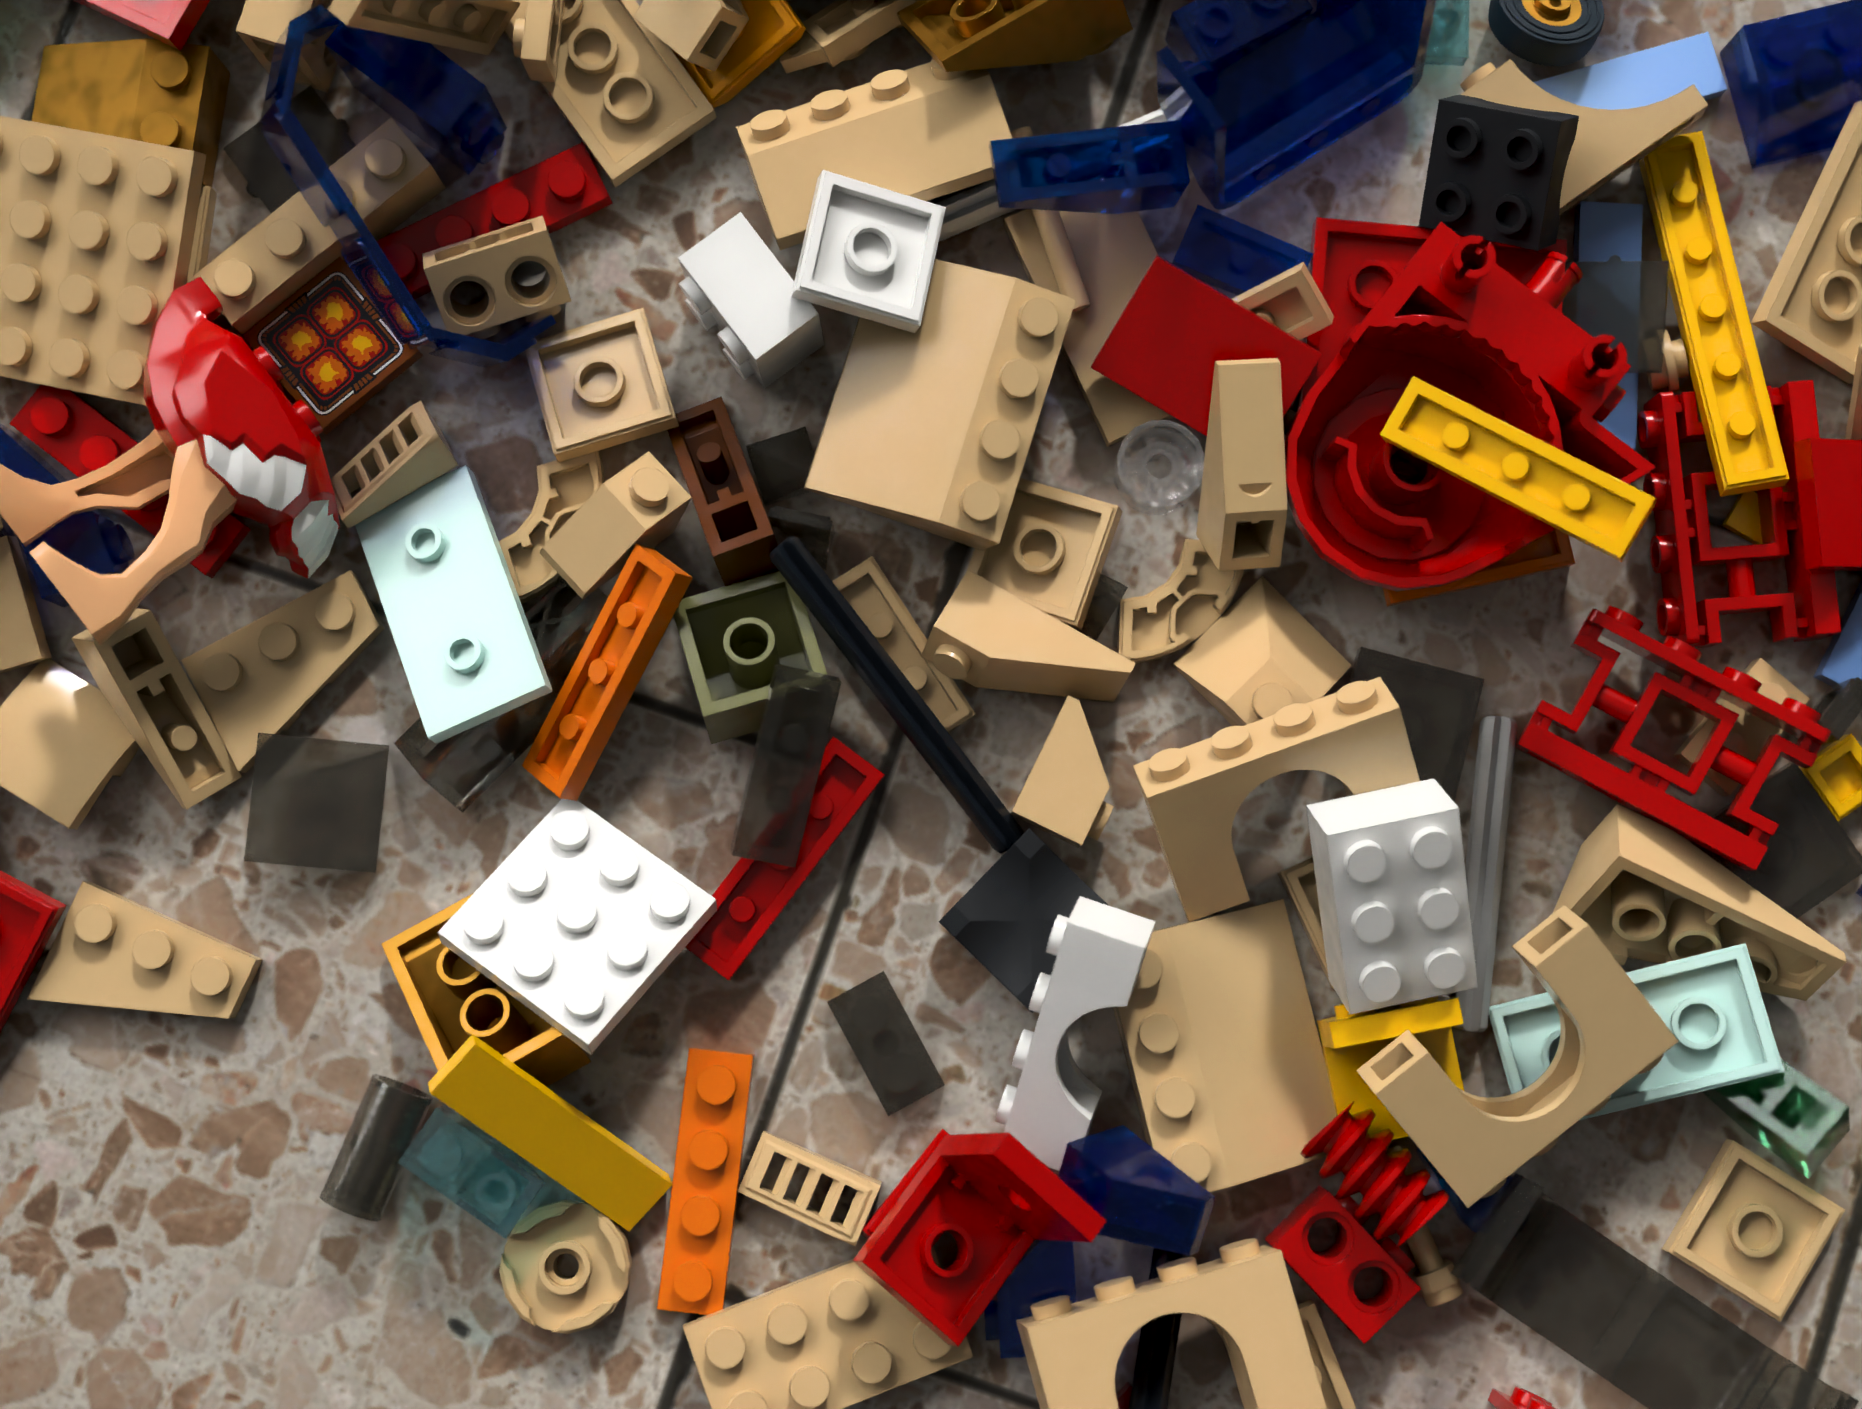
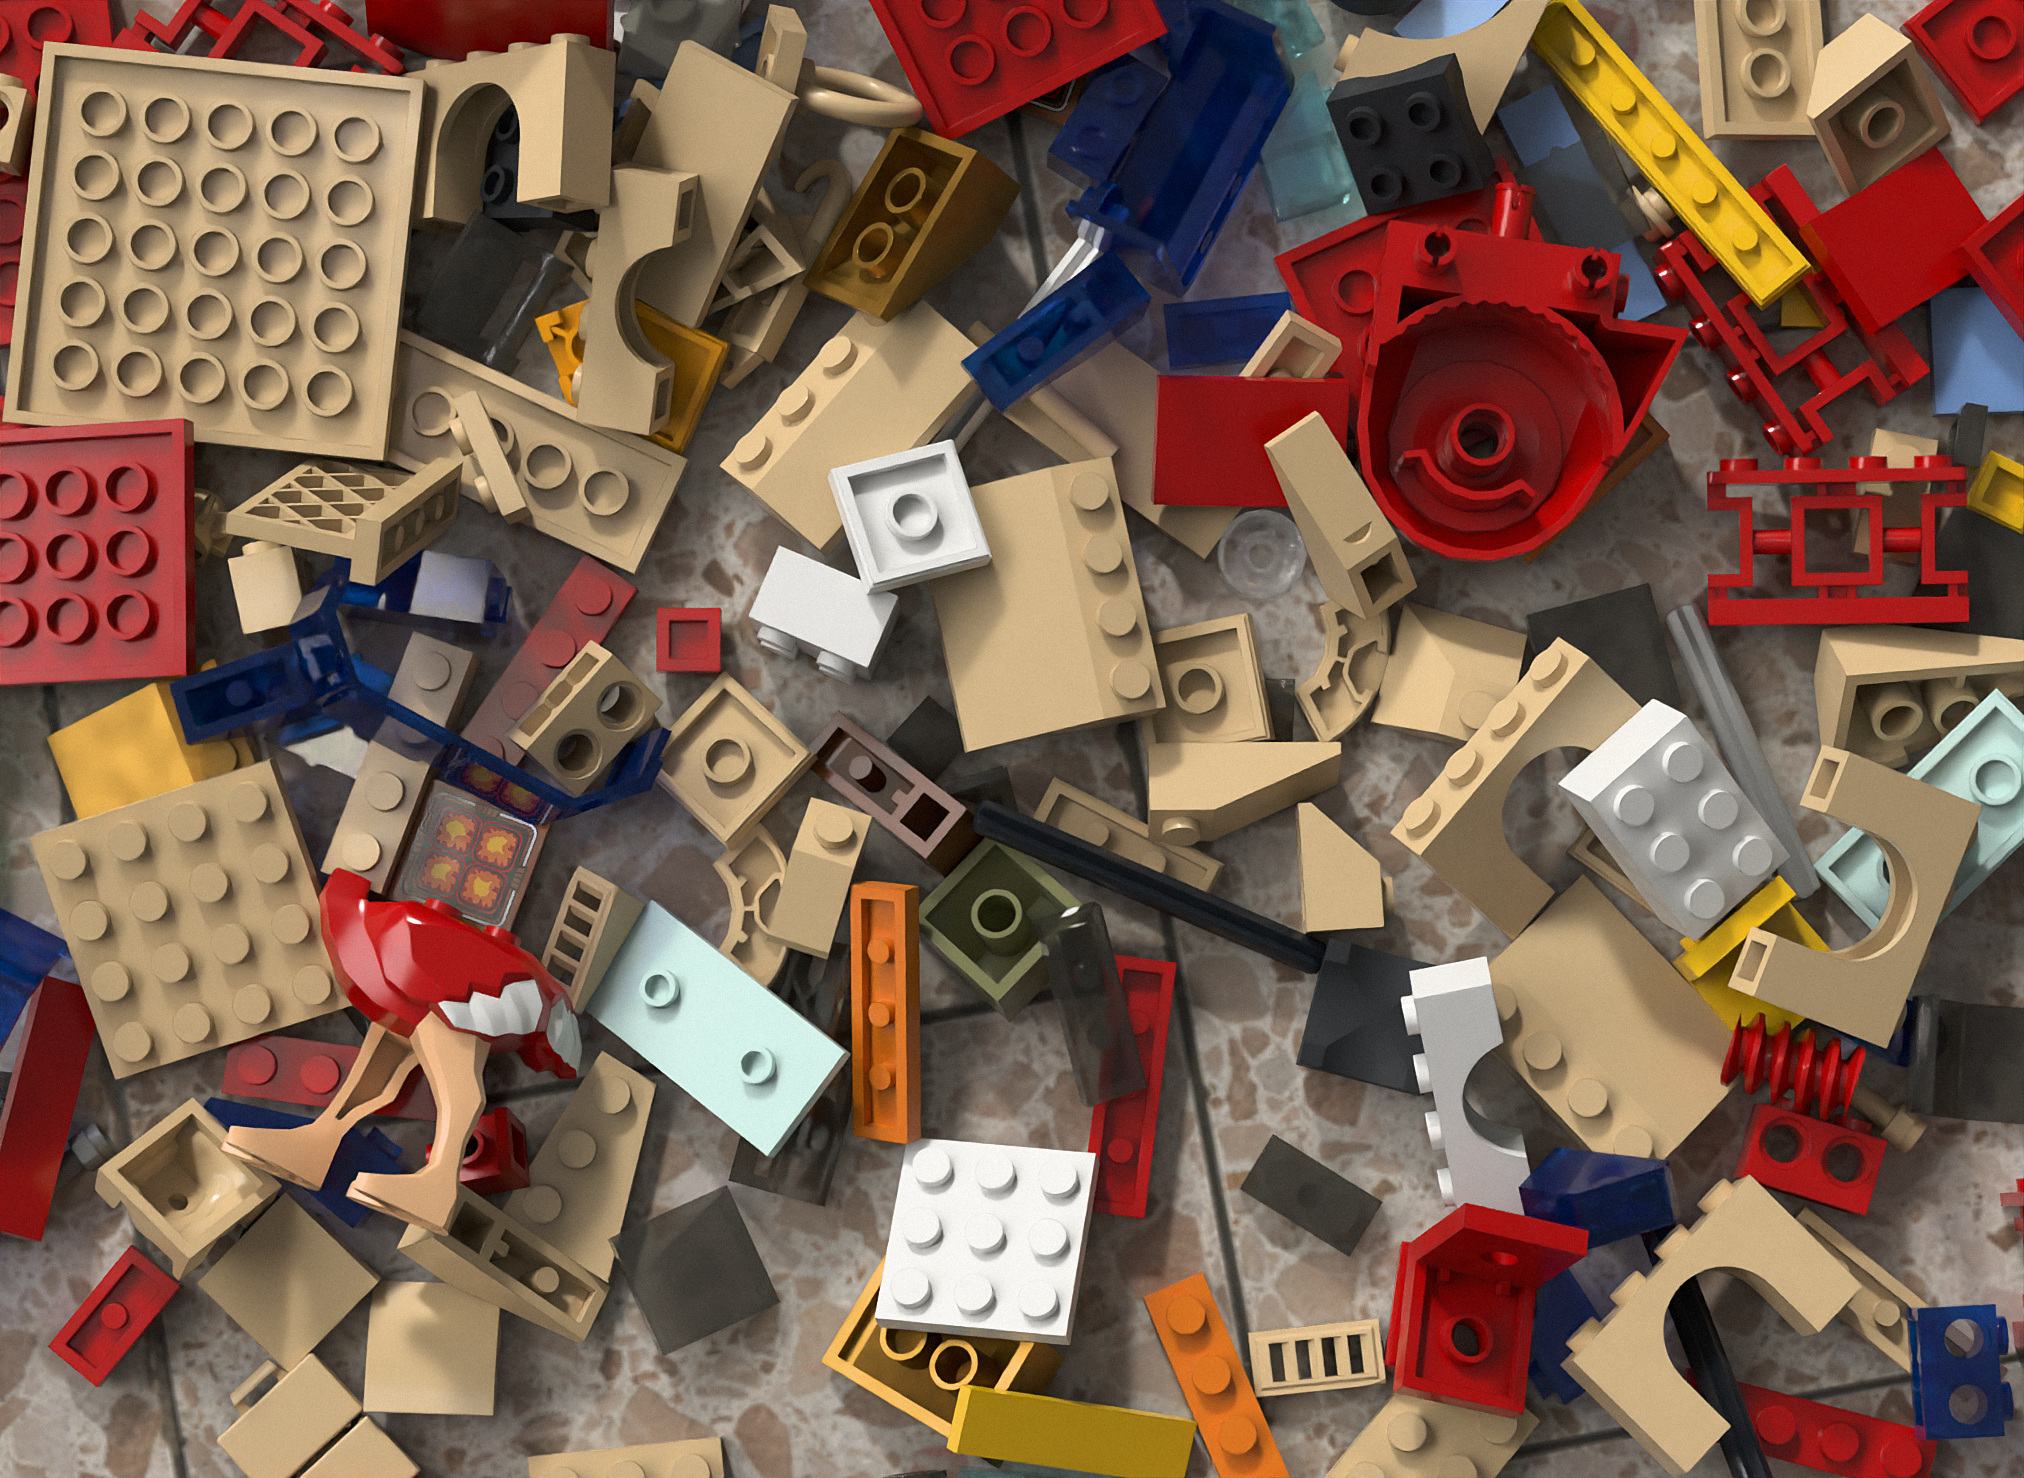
camera: 30 degrees left, 0 degrees up
(198, 603) = (500, 1155): none -> red brick
(205, 87) = (245, 697): none -> clear blue slope
(627, 264) = (689, 641): none -> red plate
(1388, 147) = (1302, 158): none -> clear light blue slope
(1518, 469) = (1574, 399): yellow plate -> none

